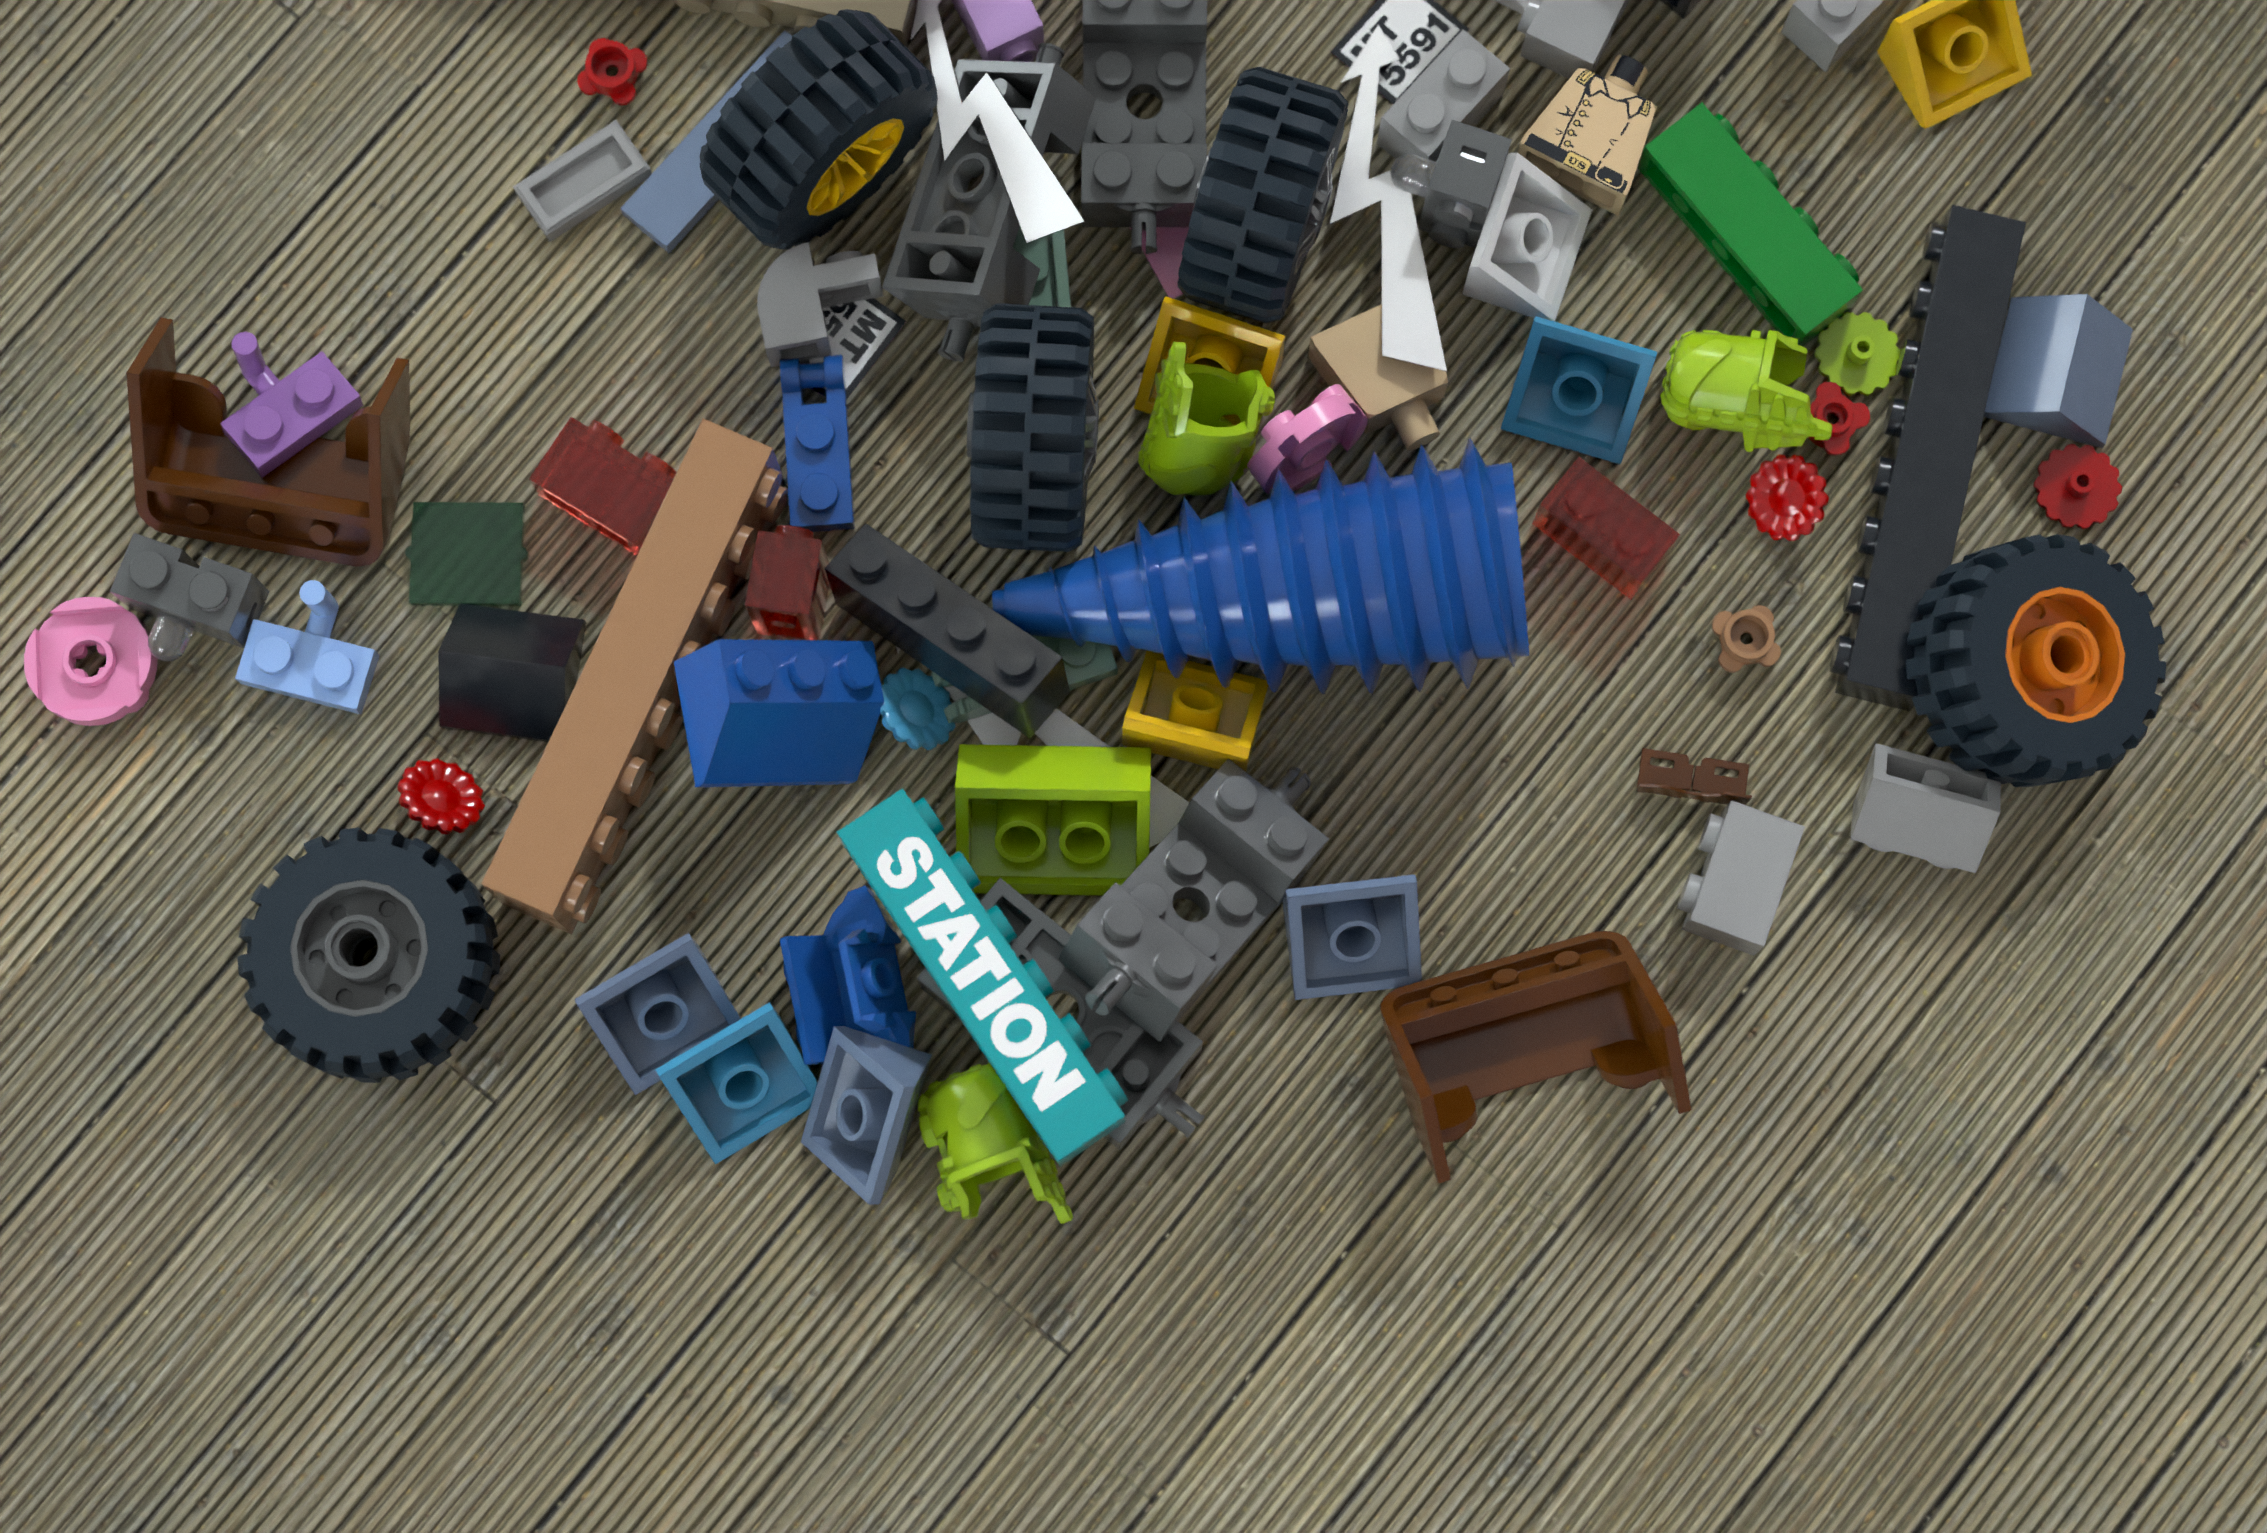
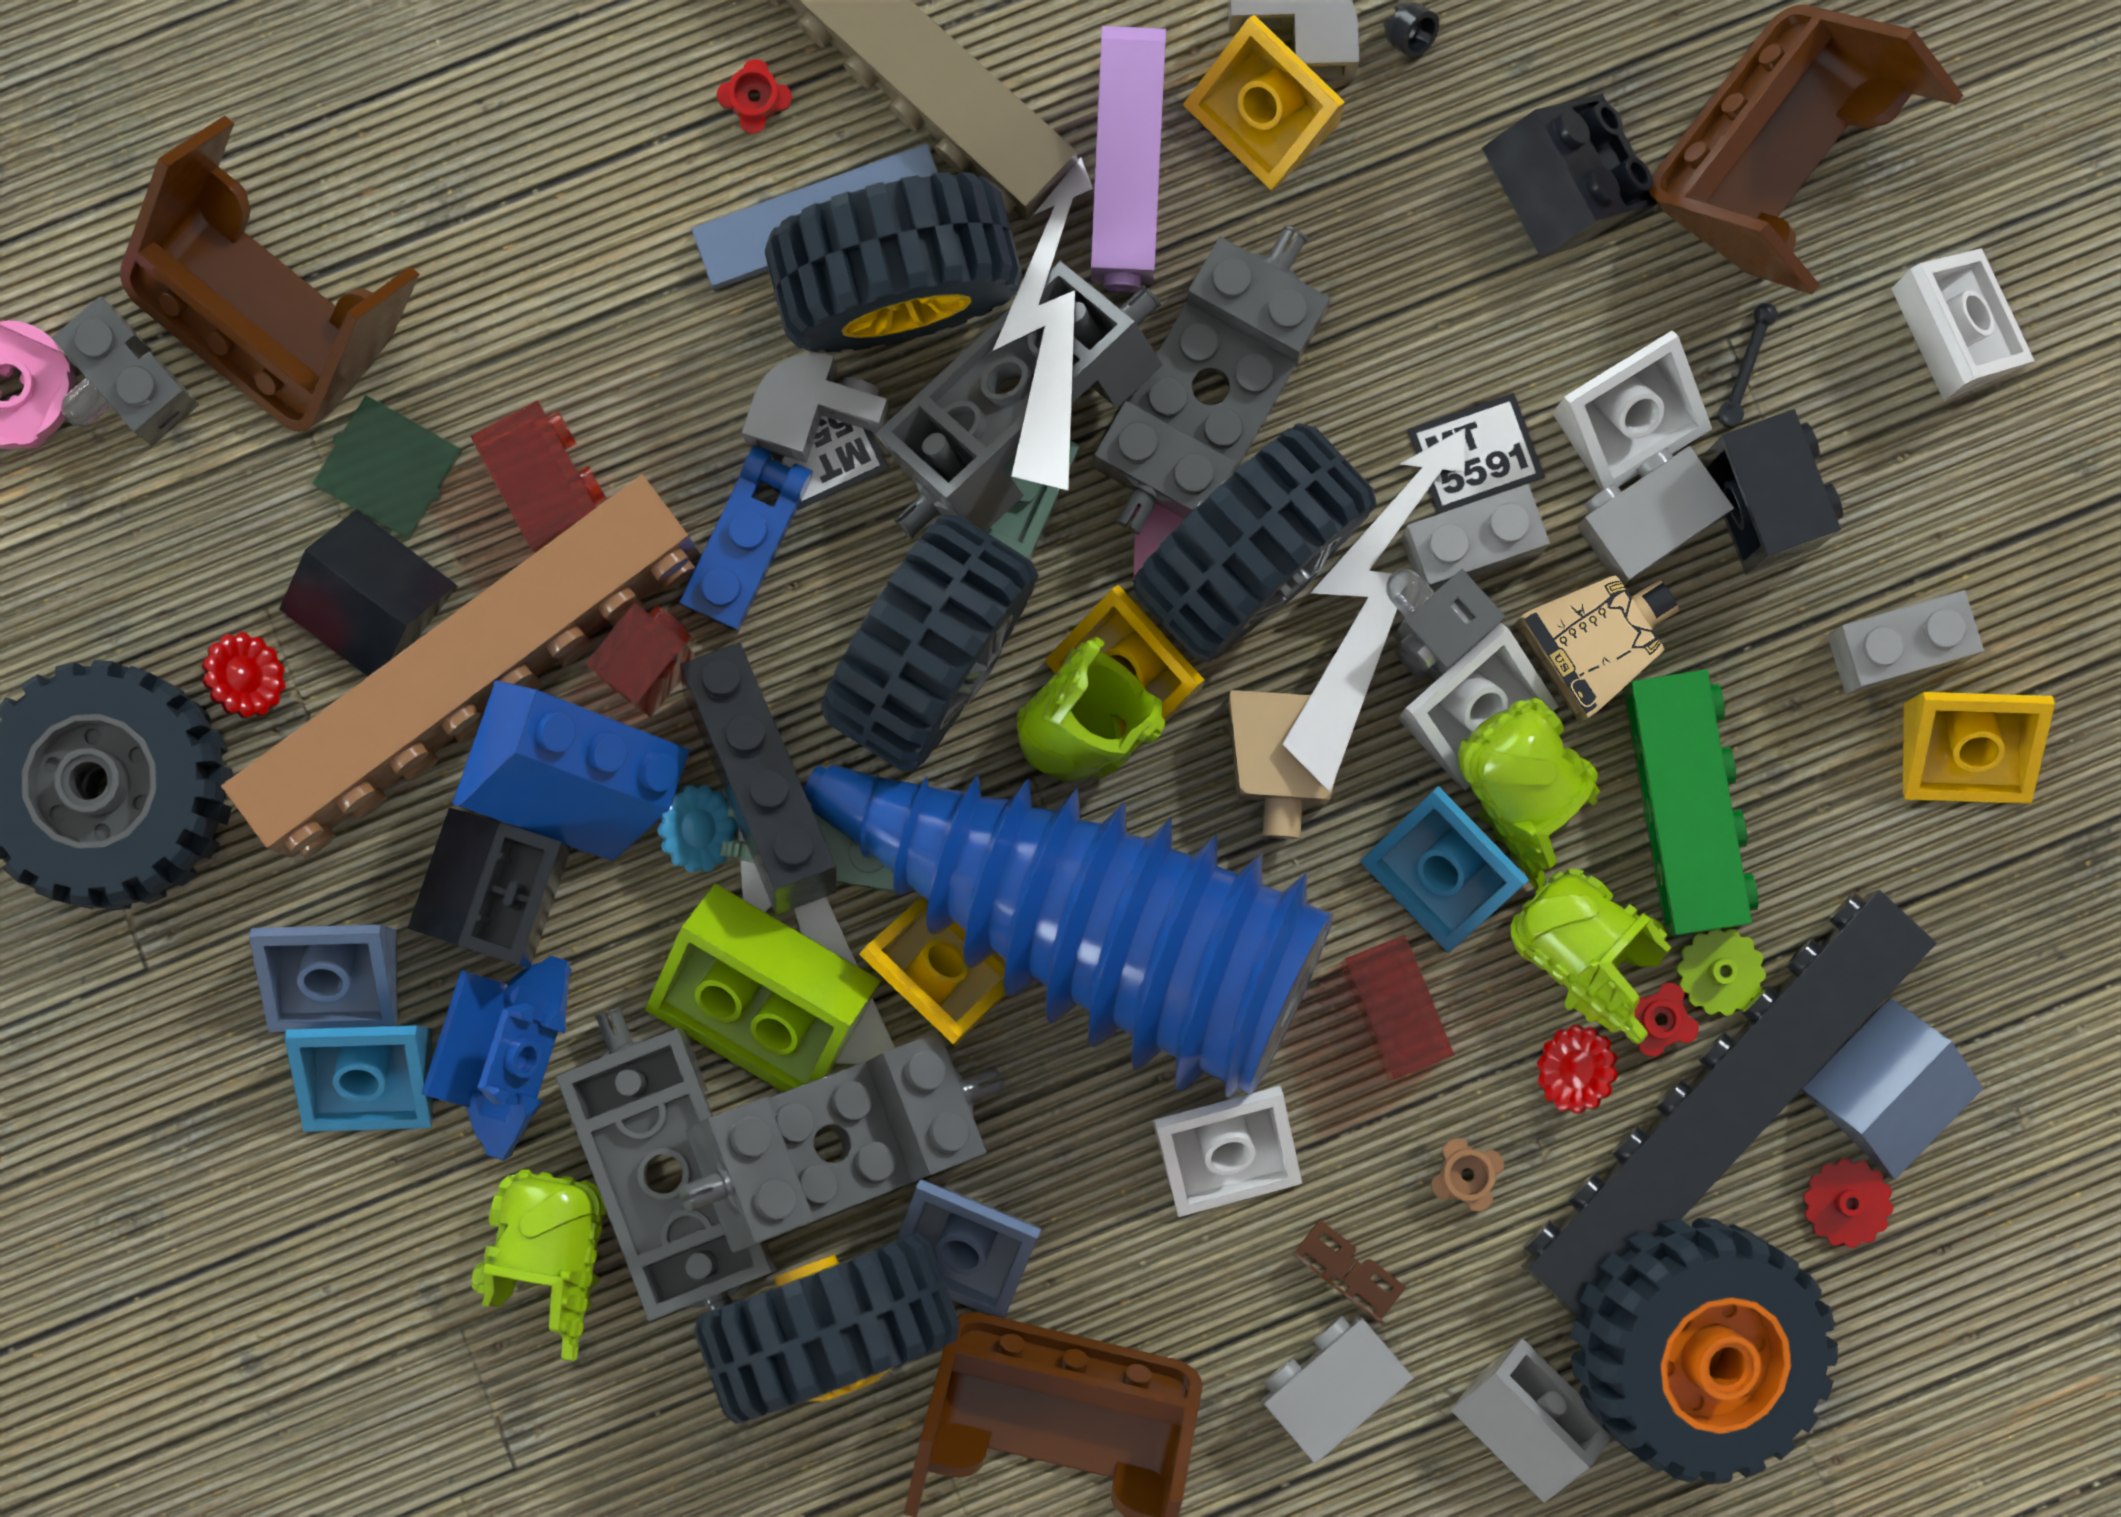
camera: 30 degrees right, 5 degrees up
(288, 410) = (299, 253): medium lavender plate -> none
(309, 662) = (197, 489): light blue plate -> none
(582, 180) = (673, 182): light grey tile -> none
(761, 856) = (489, 887): none -> black slope
(864, 1109) = (451, 1163): sand blue slope -> none
(982, 976) = (608, 1111): teal brick -> none
(1279, 1057) = (827, 1329): none -> black wheel
(1303, 441) = (1167, 787): bright pink plate -> none
(1531, 727) = (1228, 1151): none -> white slope
(1605, 276) = (1526, 781): none -> lime helmet

